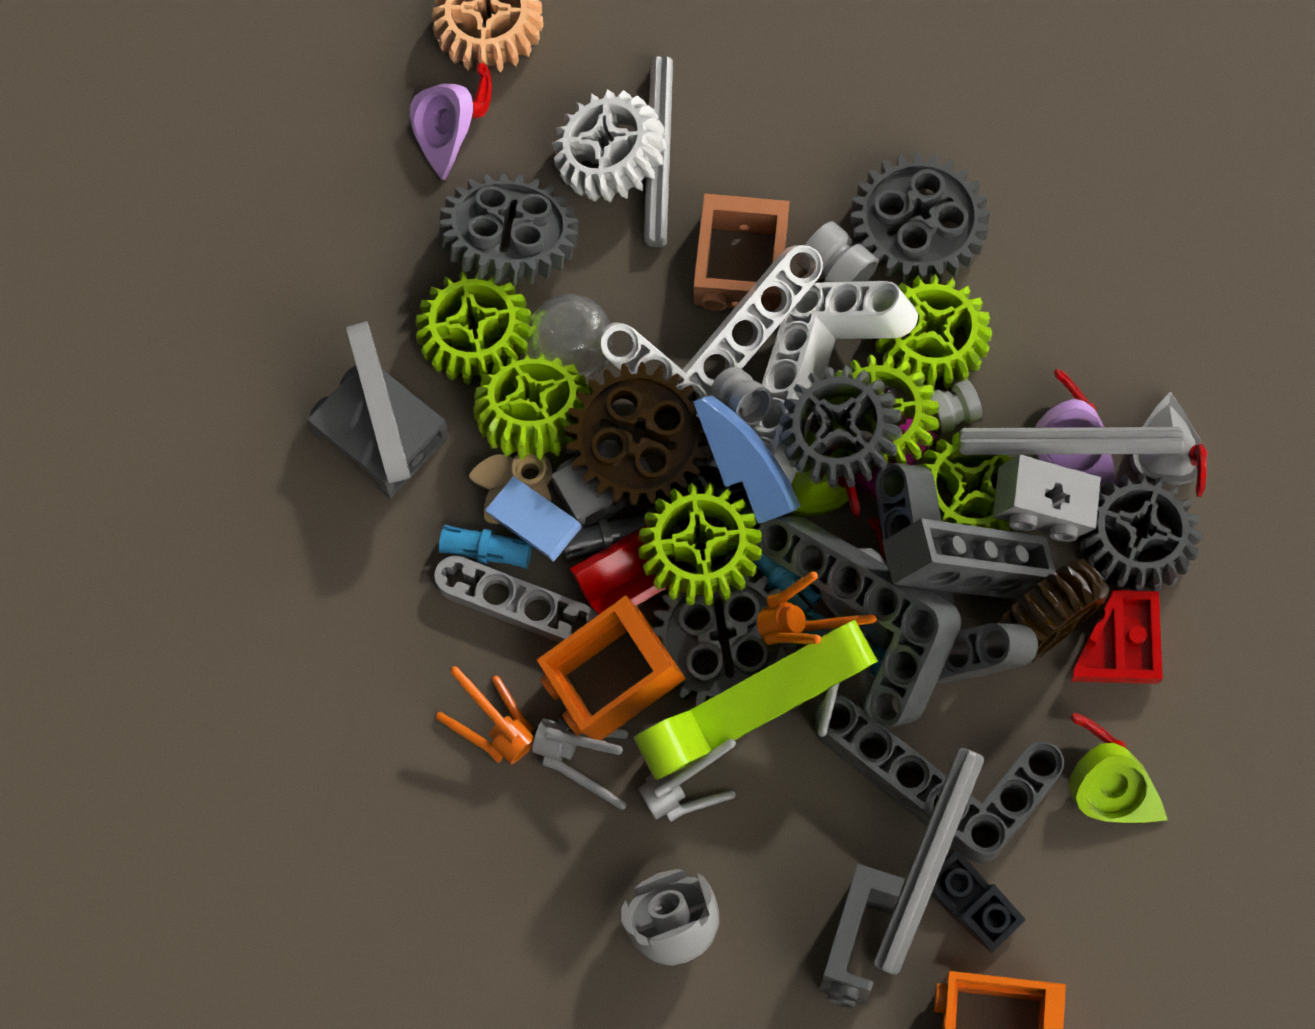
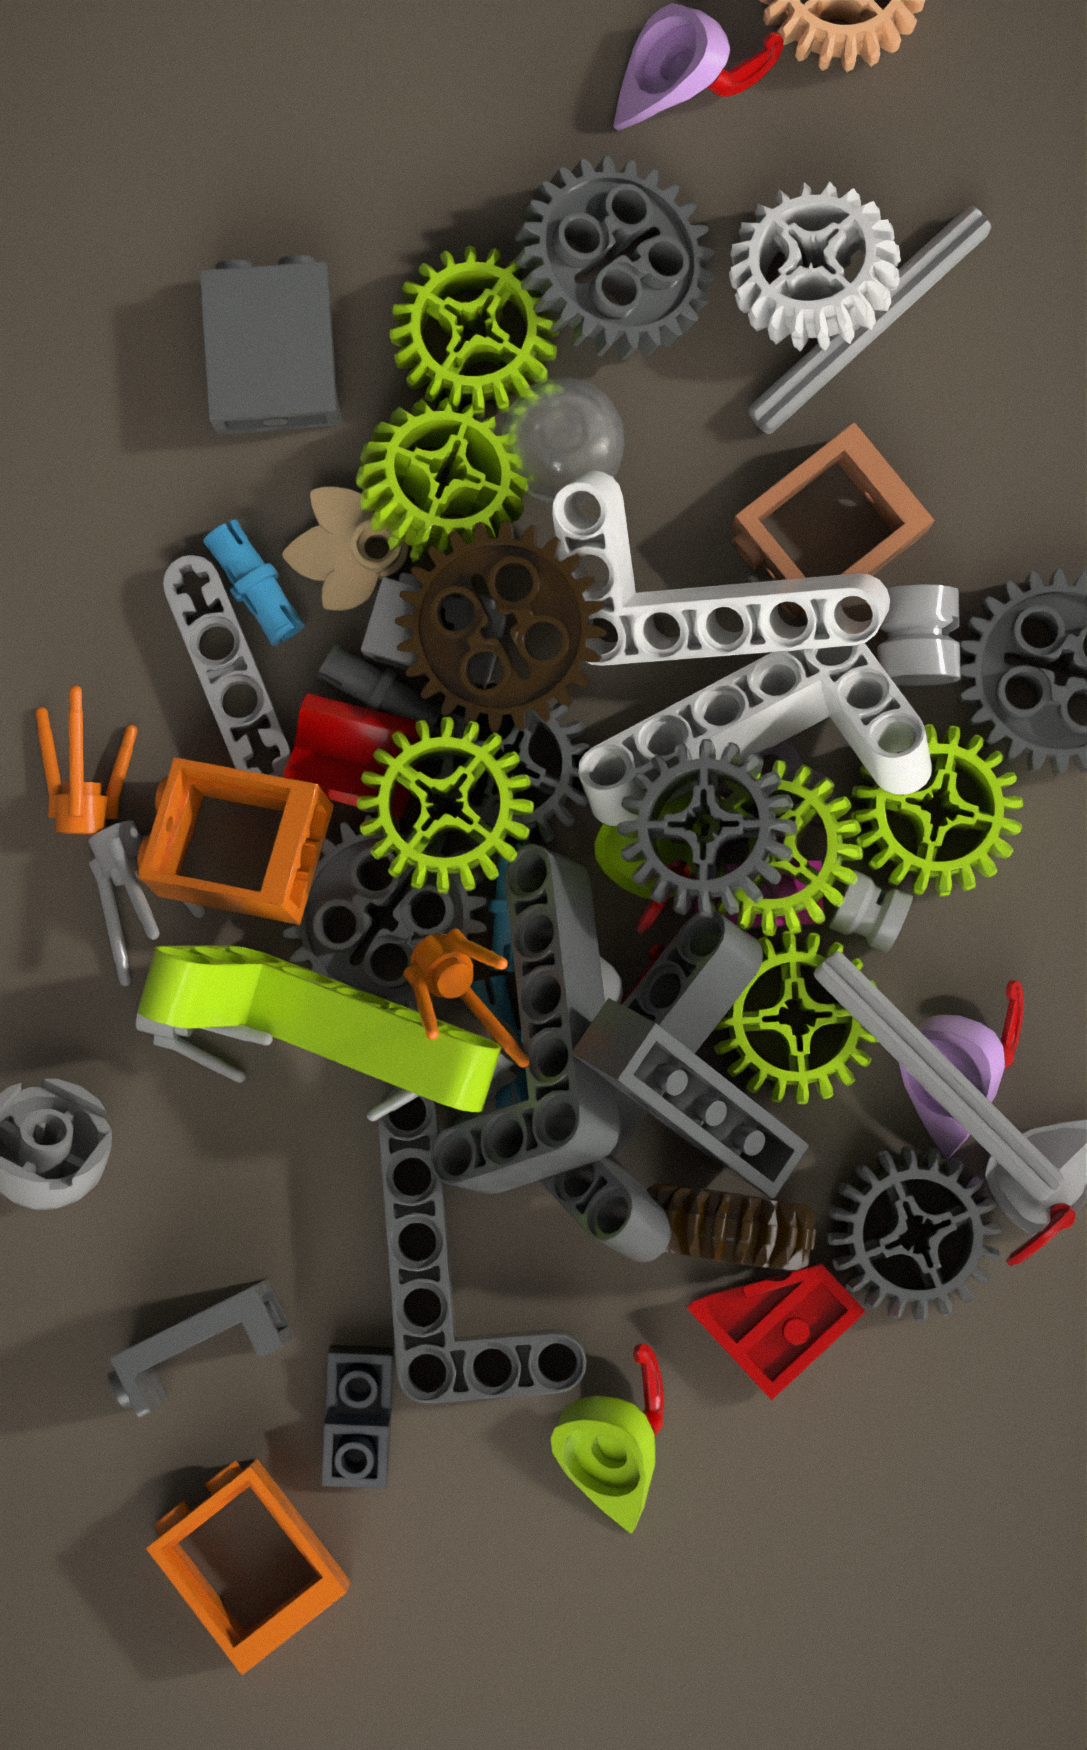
camera: 45 degrees right, 15 degrees up
(378, 402) = (280, 325): light grey beam -> none
(533, 518) = (321, 604): light blue tile -> none
(742, 395) = (654, 679): light grey wheel -> none
(747, 459) = (577, 765): medium blue slope -> none
(928, 861) = (345, 1343): light grey axle -> none
(1046, 498) = (871, 1134): light grey brick -> none

